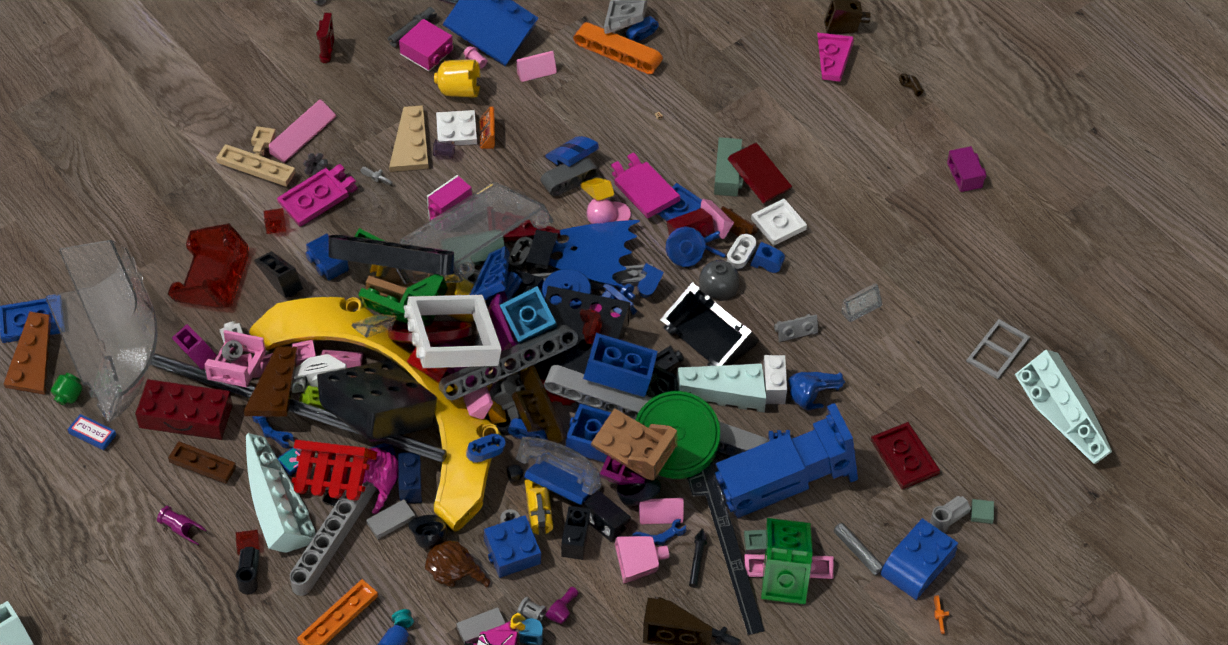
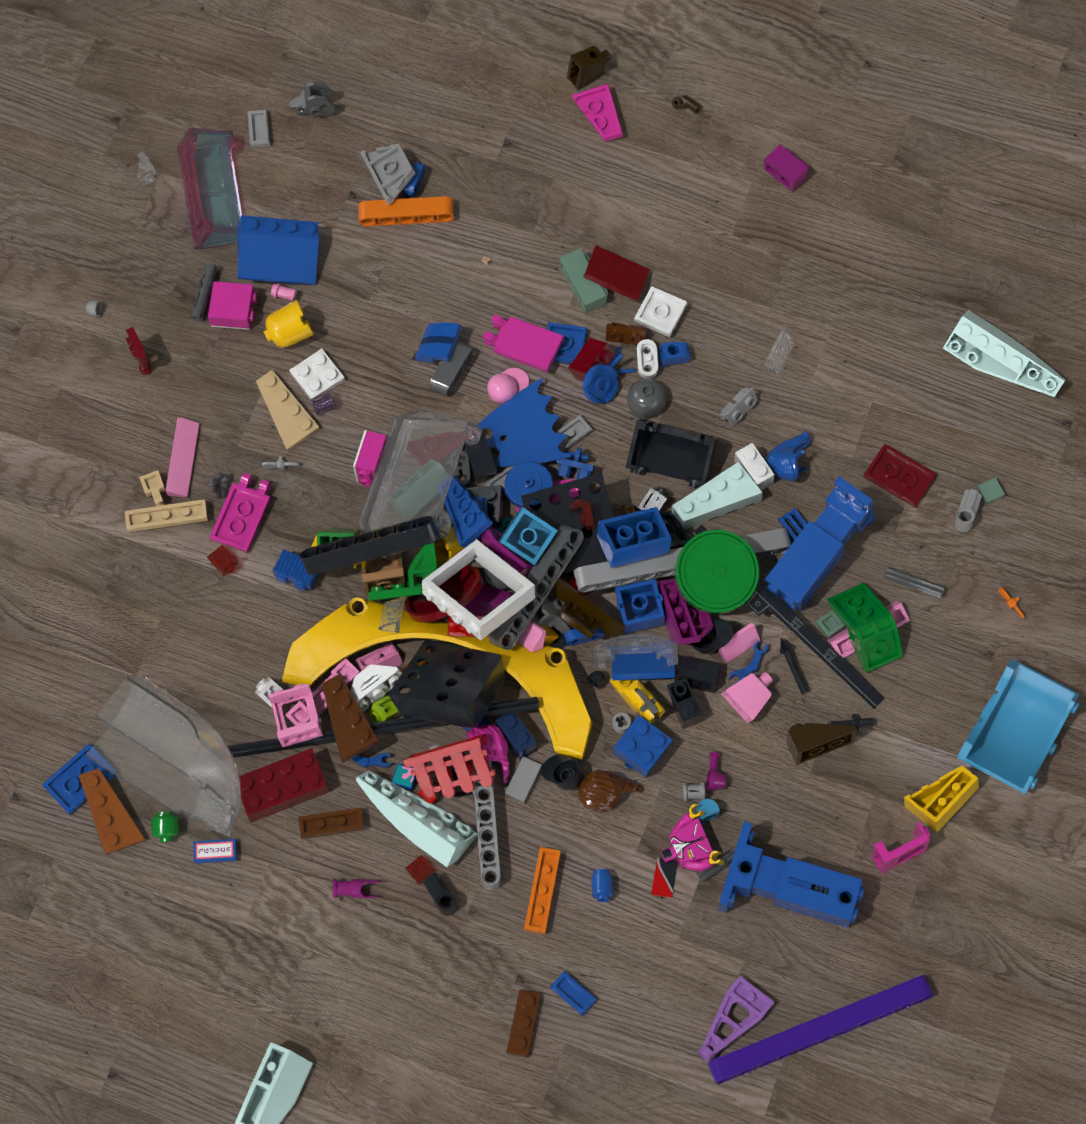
camera: 25 degrees left, 15 degrees up
(194, 346) = (249, 724): magenta brick -> none
(215, 267) = (205, 640): clear red windscreen -> none
(226, 348) = (281, 713): light grey bush -> none
(280, 274) = (267, 610): black slope -> none
(403, 618) = (596, 861): teal bush -> none
(471, 627) = (661, 828): light grey tile -> none
(484, 445) = (564, 673): blue beam -> none
(487, 129) = (346, 361): orange slope -> none
(536, 66) = (346, 272): bright pink slope -> none
(598, 188) = (489, 368): yellow slope -> none
(635, 445) = (694, 602): medium nougat bracket -> none
(648, 284) = (592, 434): blue leg -> none
(720, 220) = (615, 341): bright pink slope -> none
(919, 559) = (969, 564): blue brick -> none
(1010, 356) = (914, 330): light grey window -> none

